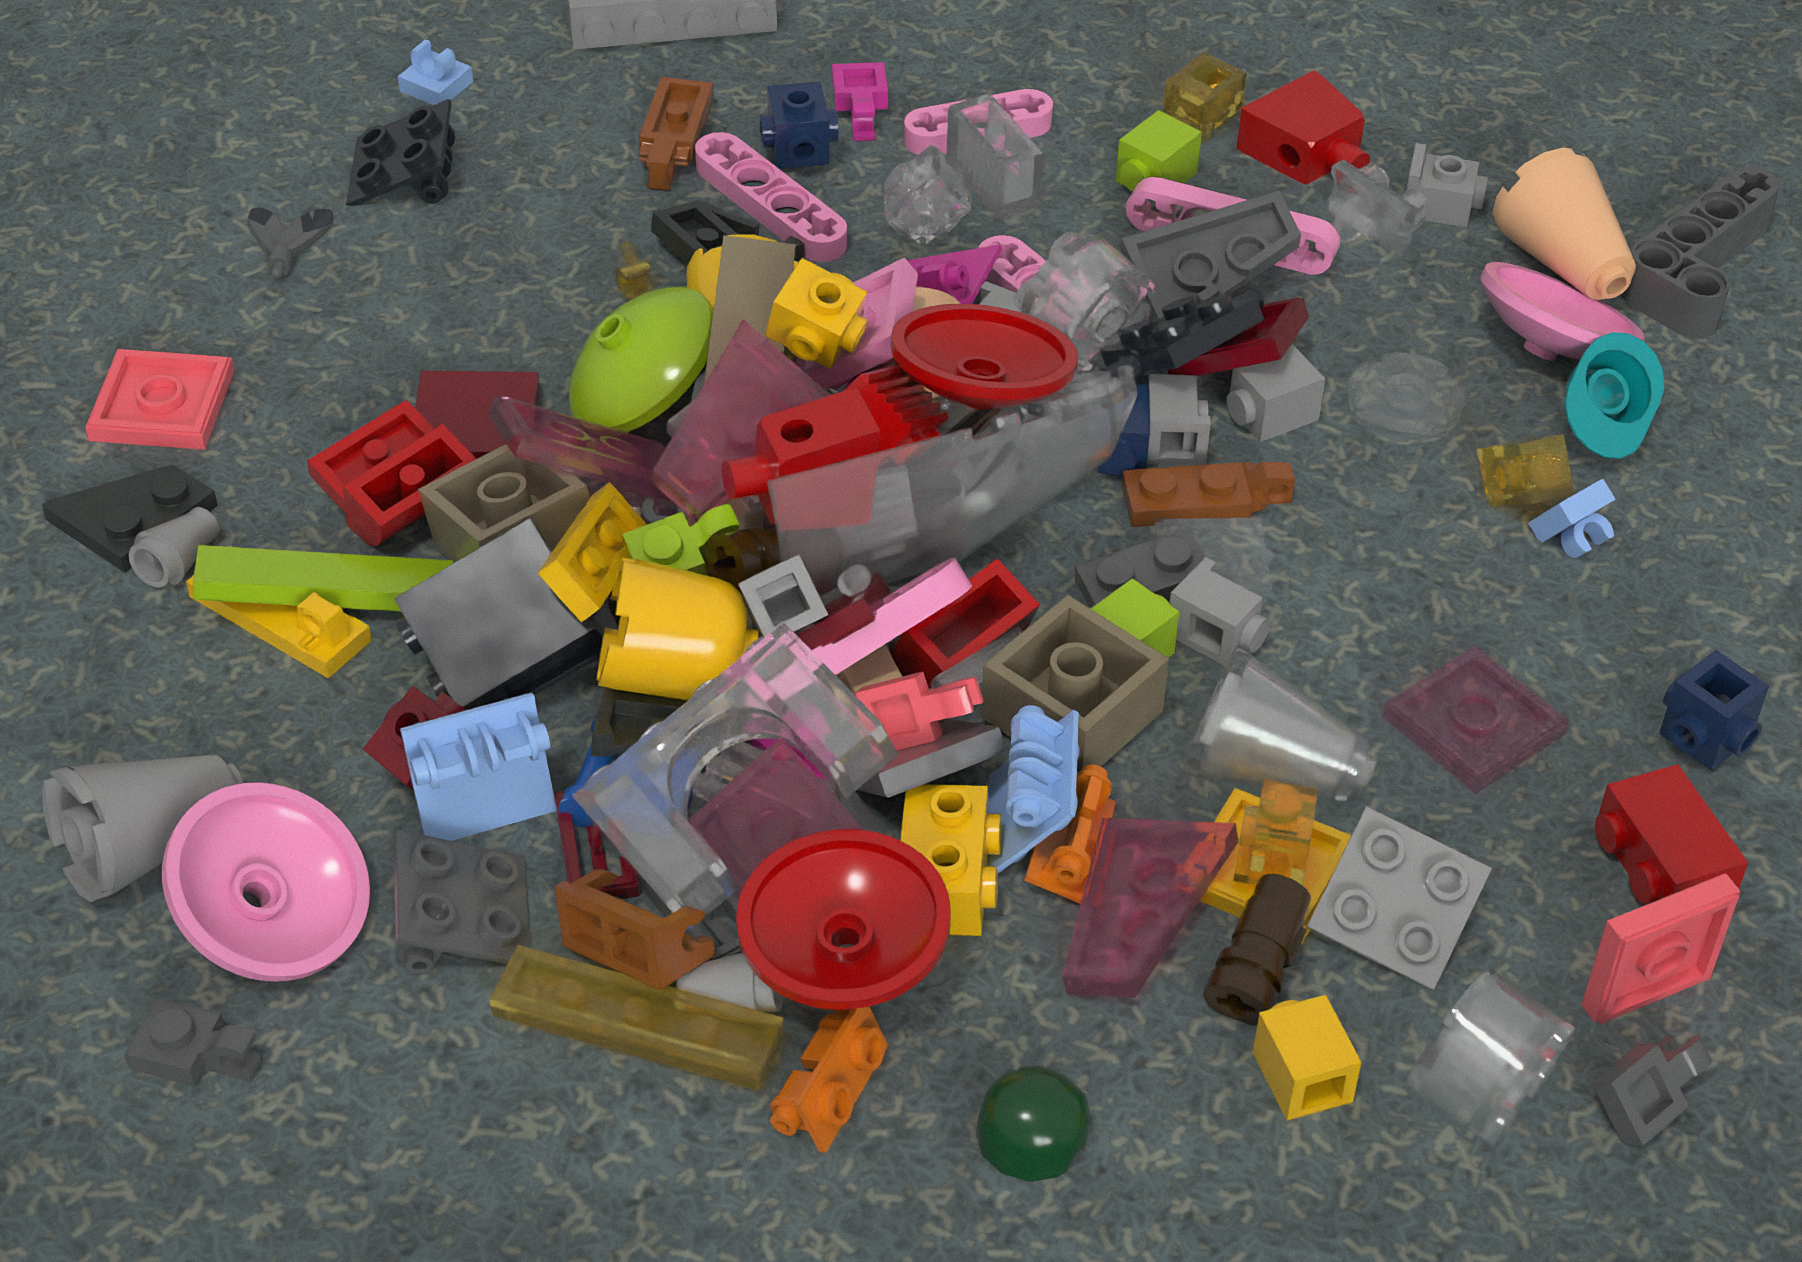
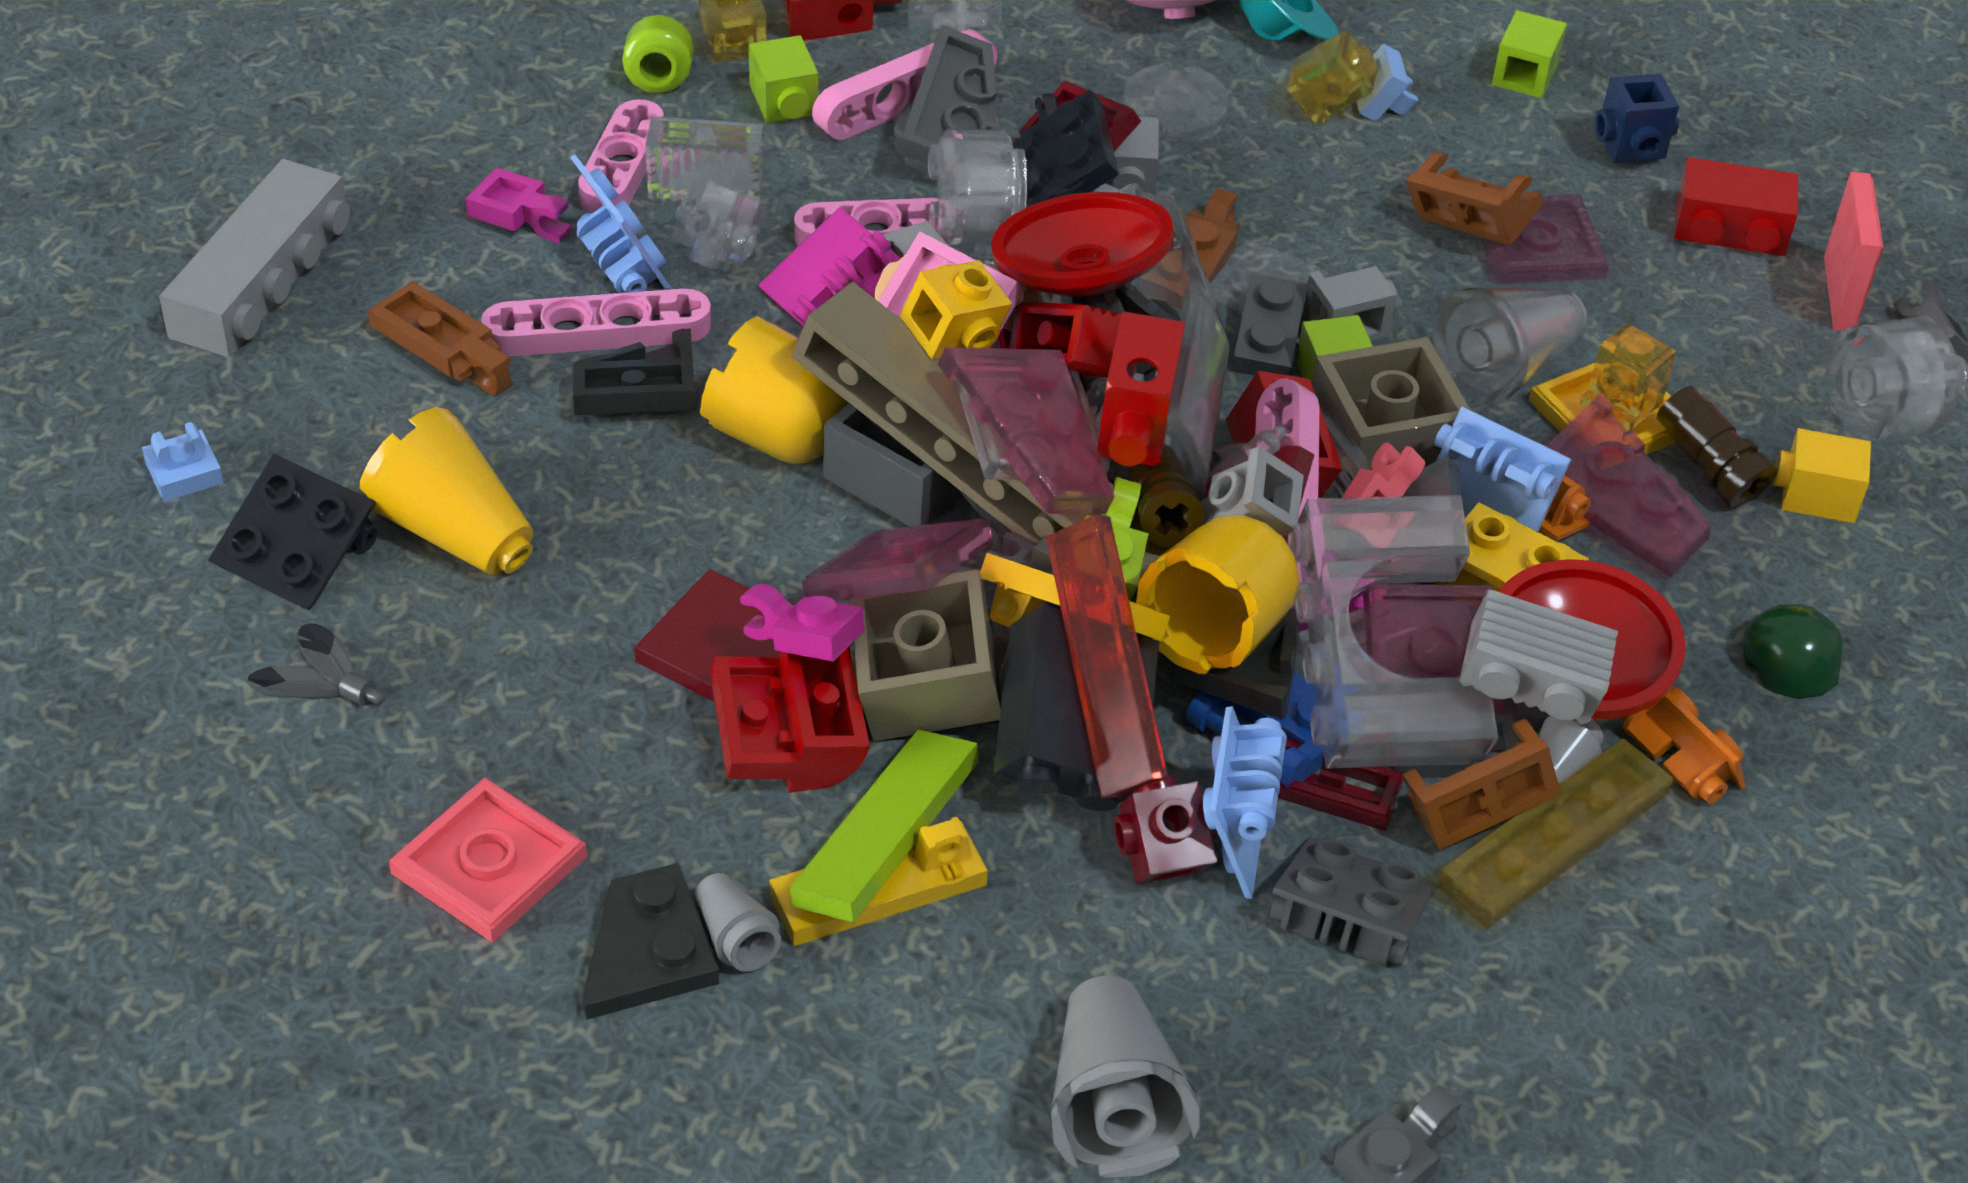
camera: 60 degrees left, 0 degrees up
(286, 855) = (1273, 1006): bright pink dish -> none
(455, 424) = (811, 628): none -> dark pink plate
(486, 195) = (448, 494): none -> yellow cone
(509, 583) = (1106, 657): none -> clear red tile
(632, 277) = (626, 452): clear yellow hand -> none
(641, 358) = (813, 506): lime dish -> none
(744, 870) = (1538, 657): none -> light grey brick
(798, 125) = (538, 254): dark blue brick -> none
(861, 145) = (613, 240): none -> light blue hinge
(1113, 79) = (658, 54): none -> lime head
(1399, 898) = (1711, 351): light grey hinge -> none
(1450, 639) = (1470, 203): none -> dark orange hinge
(1744, 599) = (1529, 54): none -> lime brick

